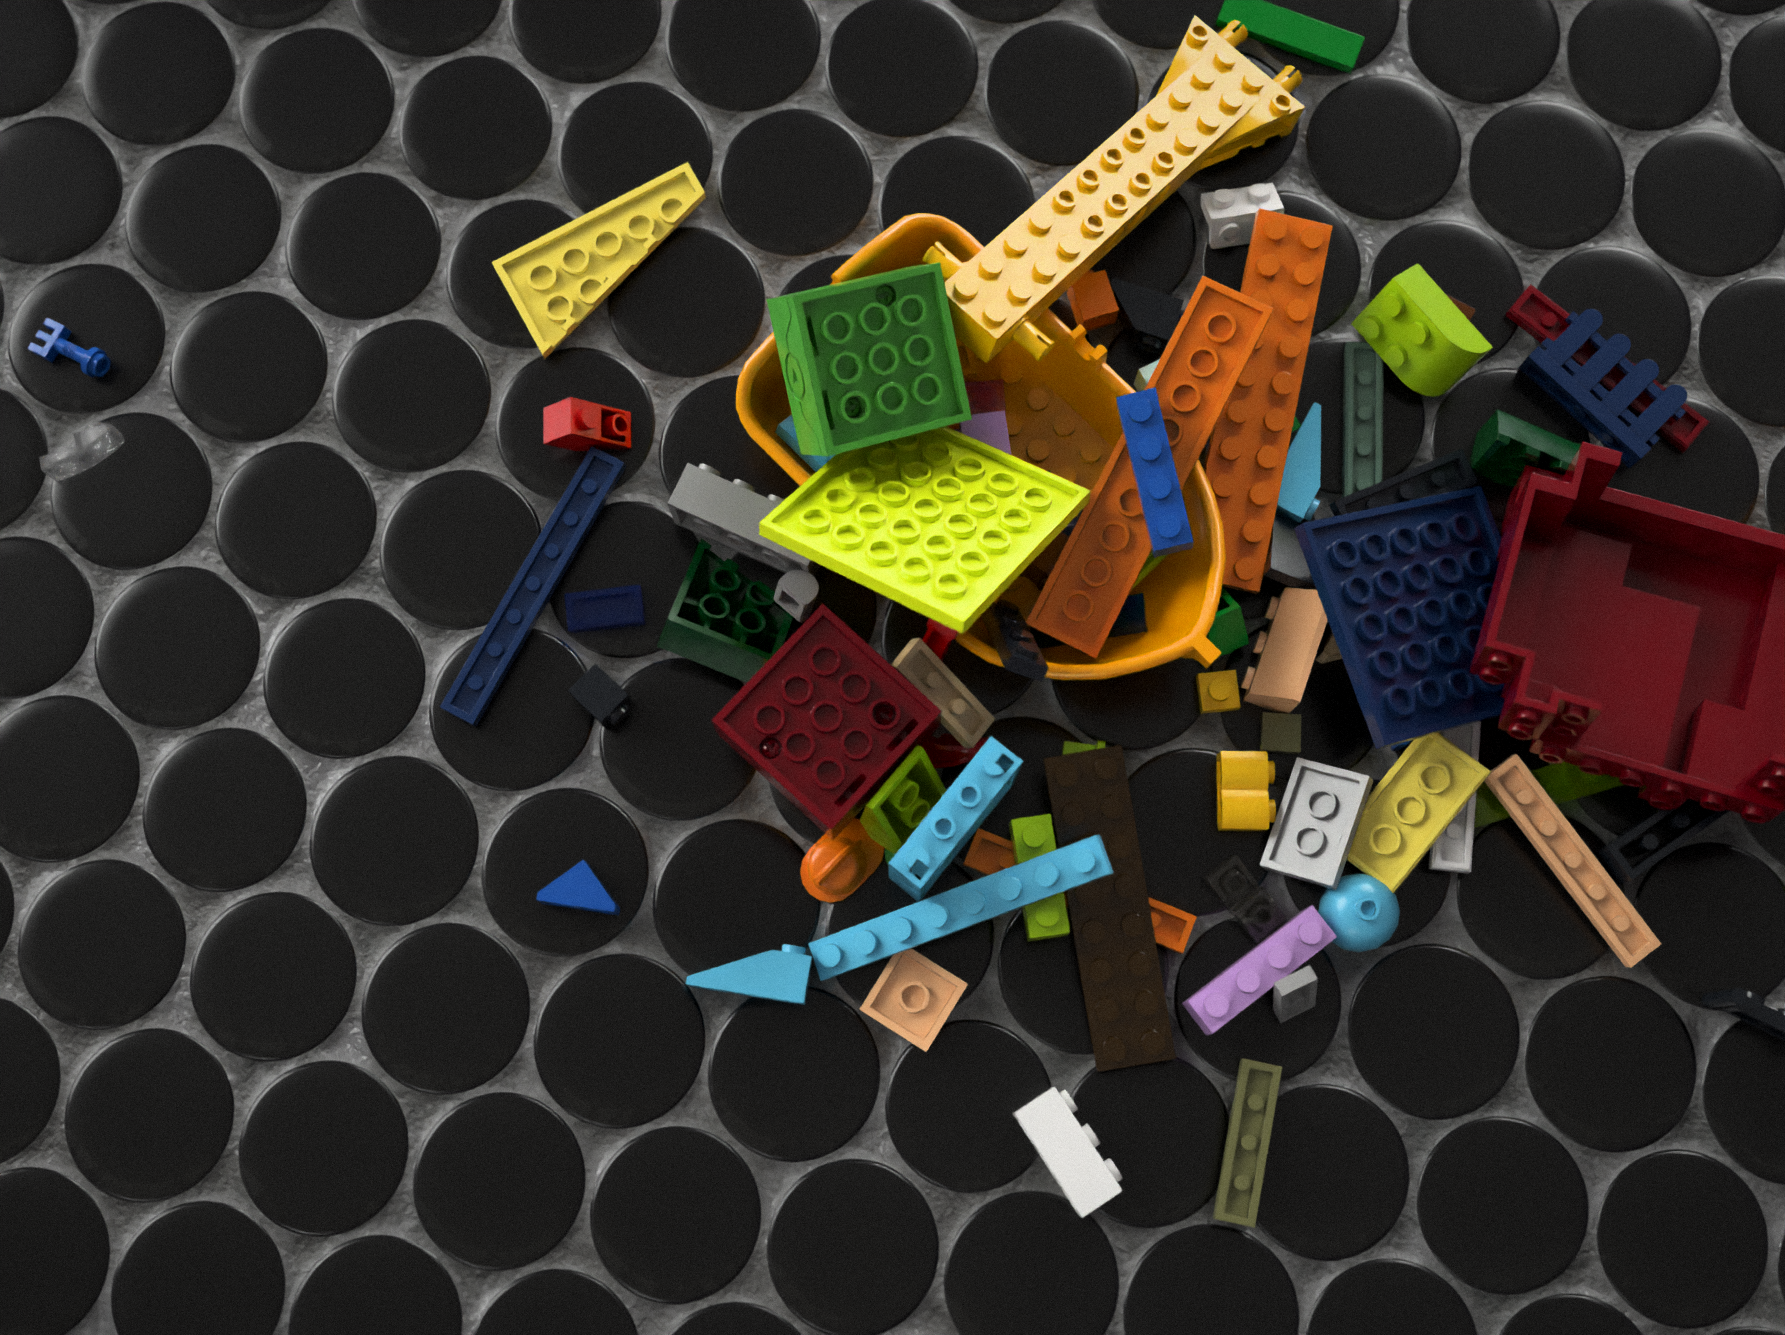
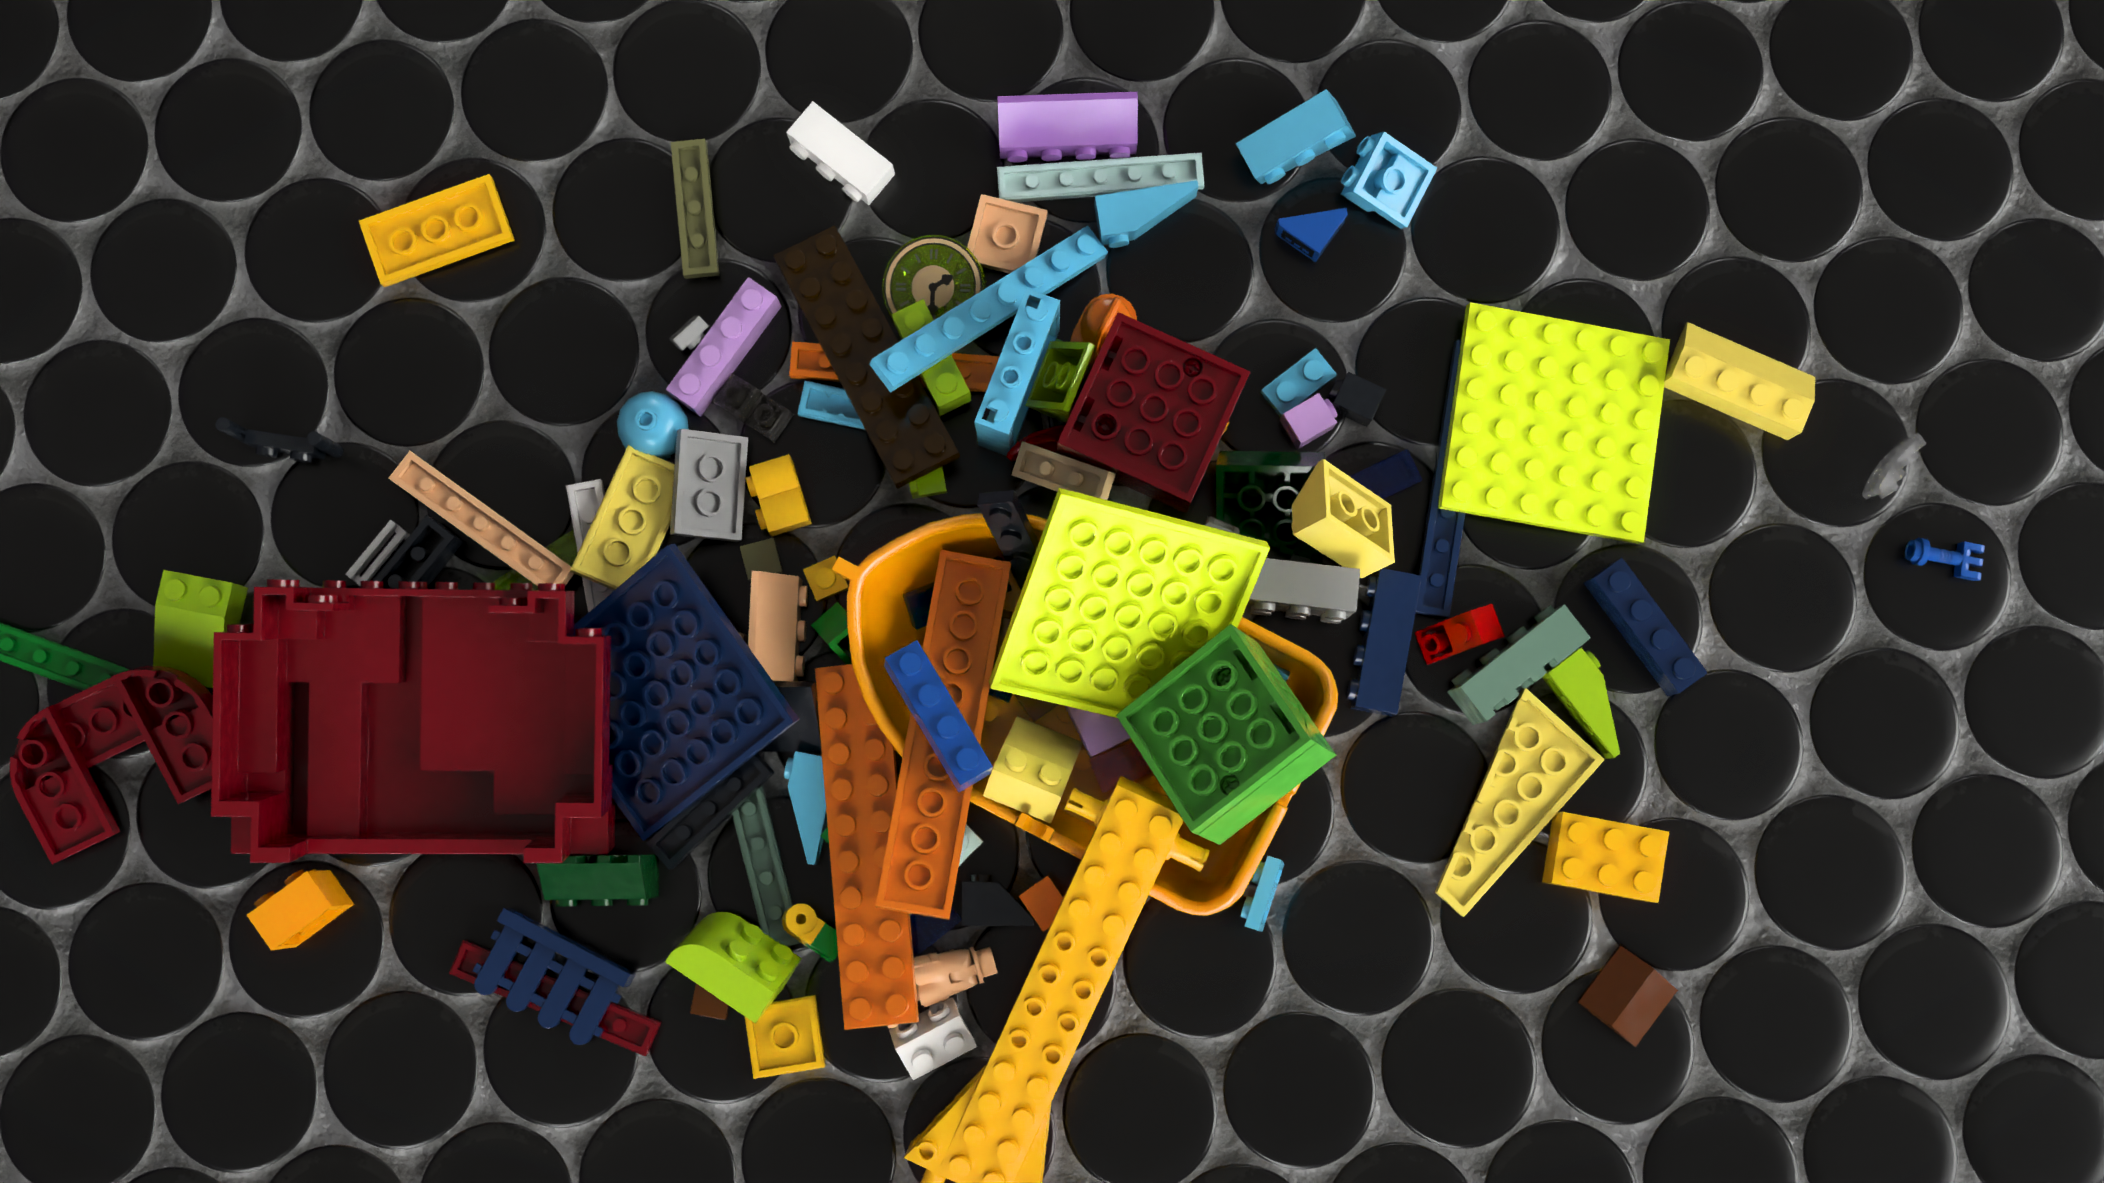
camera: 160 degrees right, 5 degrees up
(195, 589) = (1740, 382): none -> light yellow slope
(399, 373) = (1645, 627): none -> dark blue brick
(406, 607) = (1554, 423): none -> neon yellow plate
(478, 923) = (1387, 179): none -> medium azure plate
(485, 331) = (1584, 694): none -> lime slope
(528, 172) = (1605, 857): none -> yellow brick
(540, 376) = (1518, 664): none -> sand green wedge
(558, 50) = (1627, 995): none -> reddish brown slope
(560, 997) = (1296, 138): none -> medium azure wedge
(654, 737) = (1298, 382): none -> medium azure plate
(658, 690) = (1309, 420): none -> lavender brick
(664, 563) = (1344, 520): none -> light yellow slope
(665, 442) = (1385, 642): none -> dark blue brick
(788, 1032) = (1096, 177): none -> light aqua tile
(806, 1093) = (1068, 126): none -> medium lavender slope
(884, 215) = (1267, 878): none -> medium azure plate
(1007, 974) = (932, 270): none -> tile
(1065, 413) = (1032, 769): none -> light yellow slope
(1166, 874) = (827, 405): none -> medium azure plate
(1221, 263) = (950, 973): none -> light nougat piece
(1335, 345) = (811, 931): none -> yellow leg
(1380, 254) = (786, 1038): none -> yellow tile
(1544, 1212) = (436, 230): none -> yellow plate
(1710, 845) = (366, 557): none -> white tile

